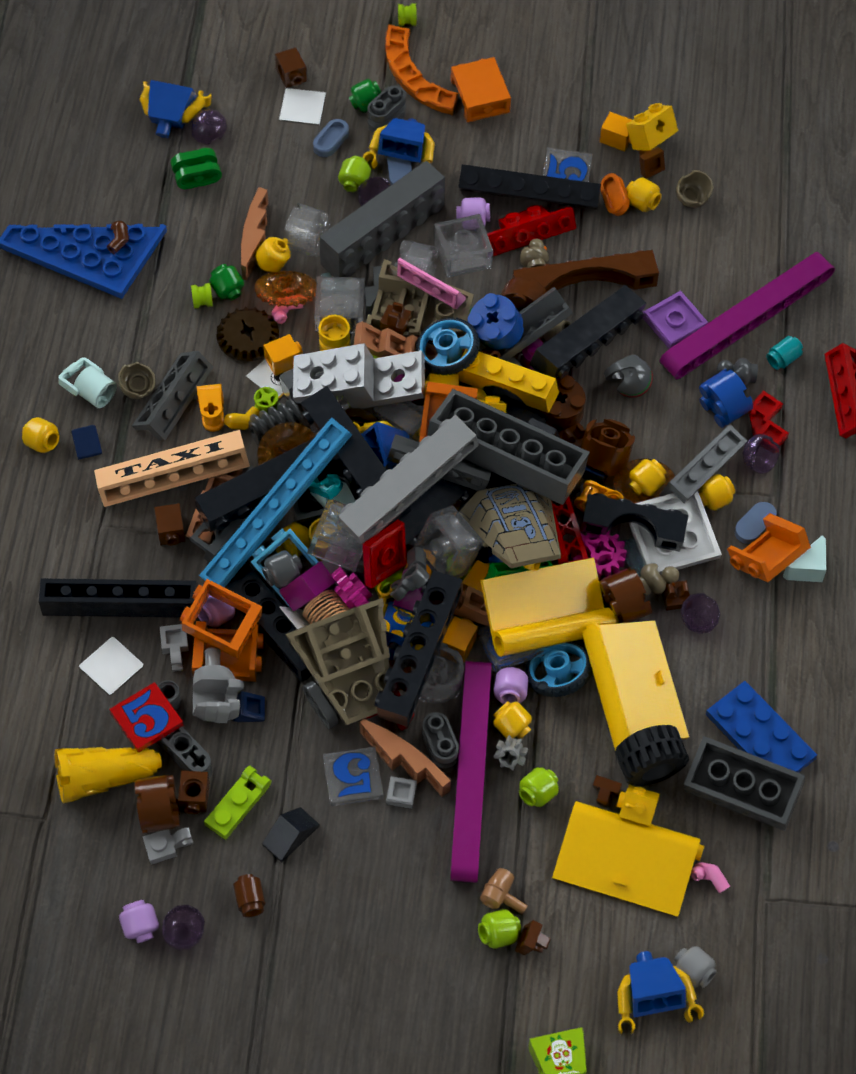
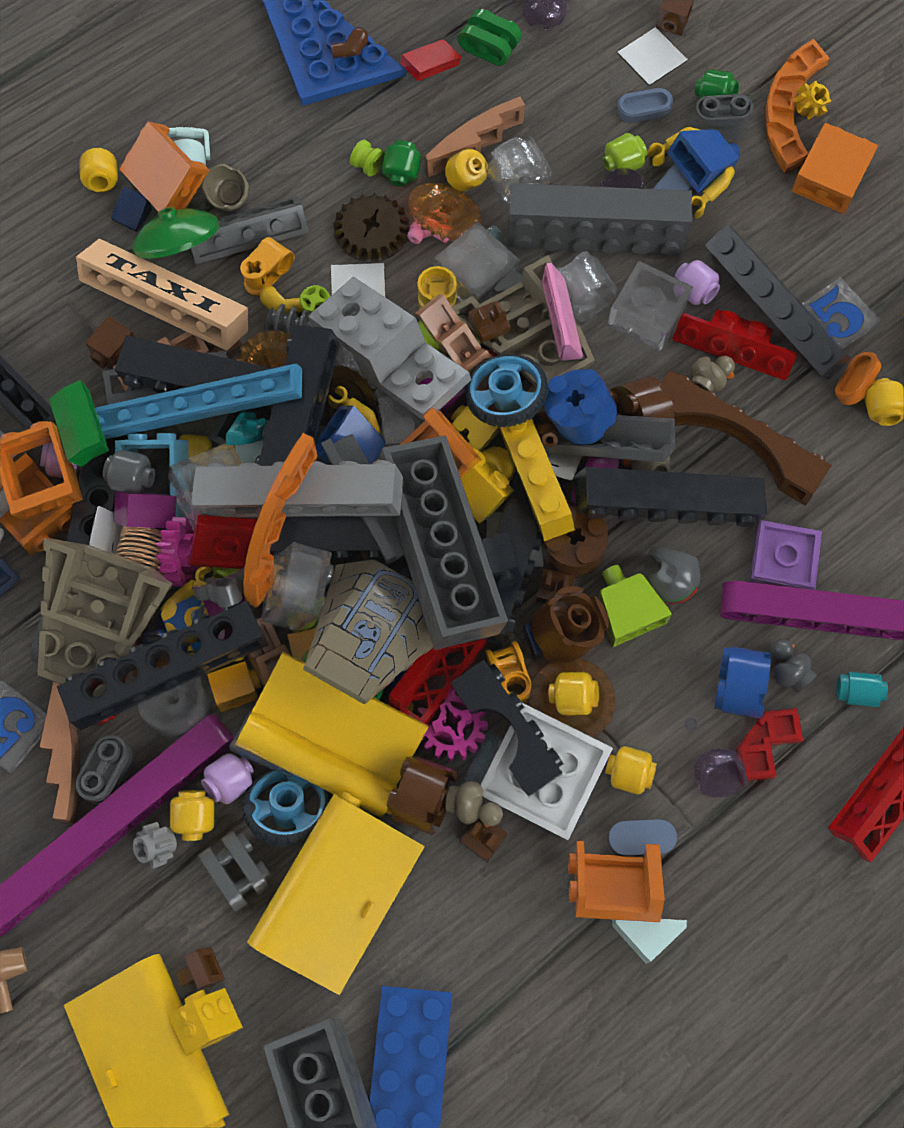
camera: 45 degrees right, 10 degrees up
(88, 399) = (162, 169): none -> orange panel
(140, 429) = (174, 232): none -> green dish
(175, 209) = (430, 60): none -> red tile
(219, 568) = (78, 424): none -> green piece
(281, 353) = (378, 270): light orange brick -> none
(401, 792) = (29, 783): light grey tile -> none
(407, 15) = (840, 42): lime wheel -> none
(419, 502) = (259, 561): none -> orange tile
(427, 60) = (812, 100): none -> yellow gear
(538, 787) = (141, 905): lime head -> none
(567, 726) = (255, 874): none -> dark grey brick
(625, 407) = (630, 606): none -> lime torso
(651, 755) = (265, 985): black tyre -> none
(700, 613) = (479, 881): clear purple hair -> none
(705, 464) = (647, 734): dark grey fence -> none

